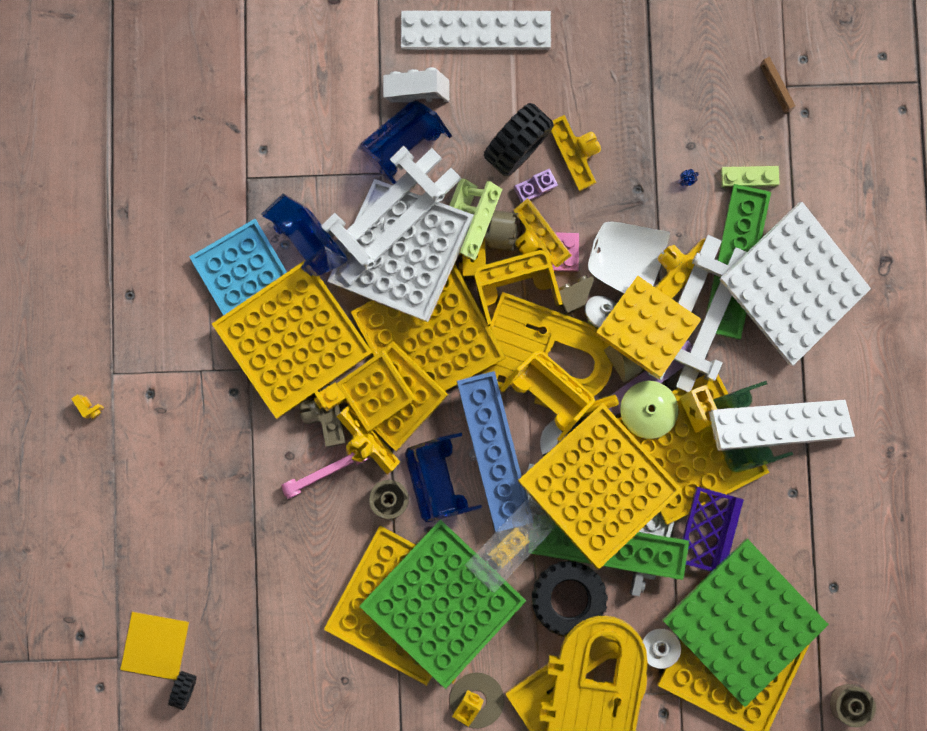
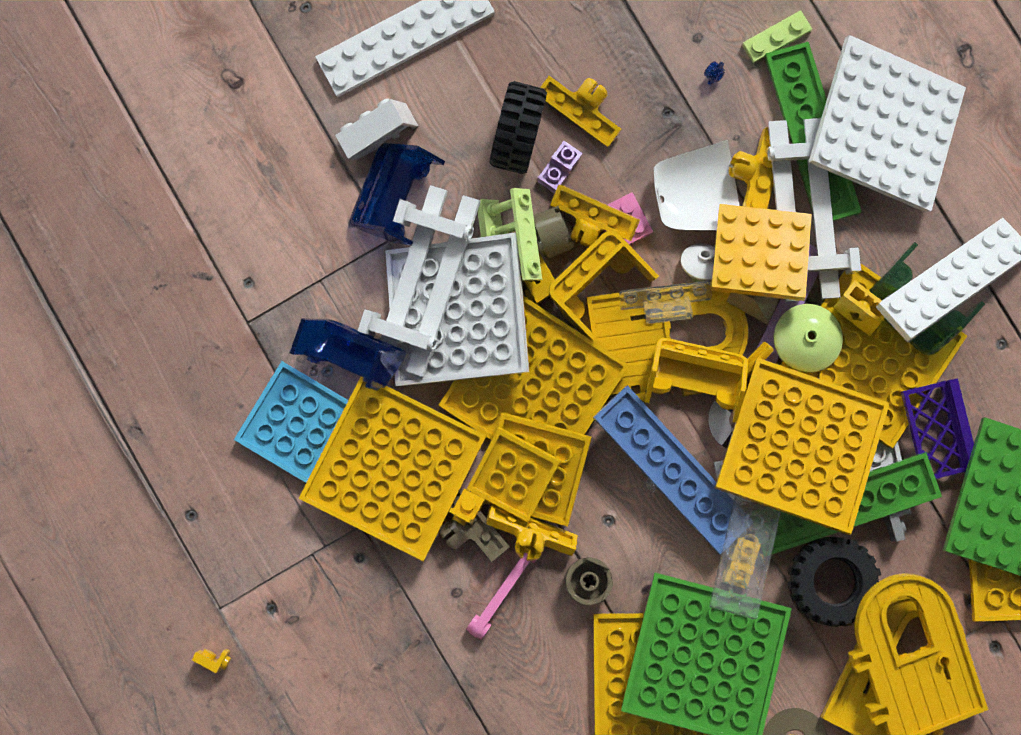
camera: 30 degrees left, 0 degrees up
(432, 479) = (624, 537): clear blue windscreen -> none
(558, 326) = (667, 301): none -> clear bracket
(575, 296) = (666, 258): dark tan slope -> none
(658, 638) = (970, 576): white dish -> none

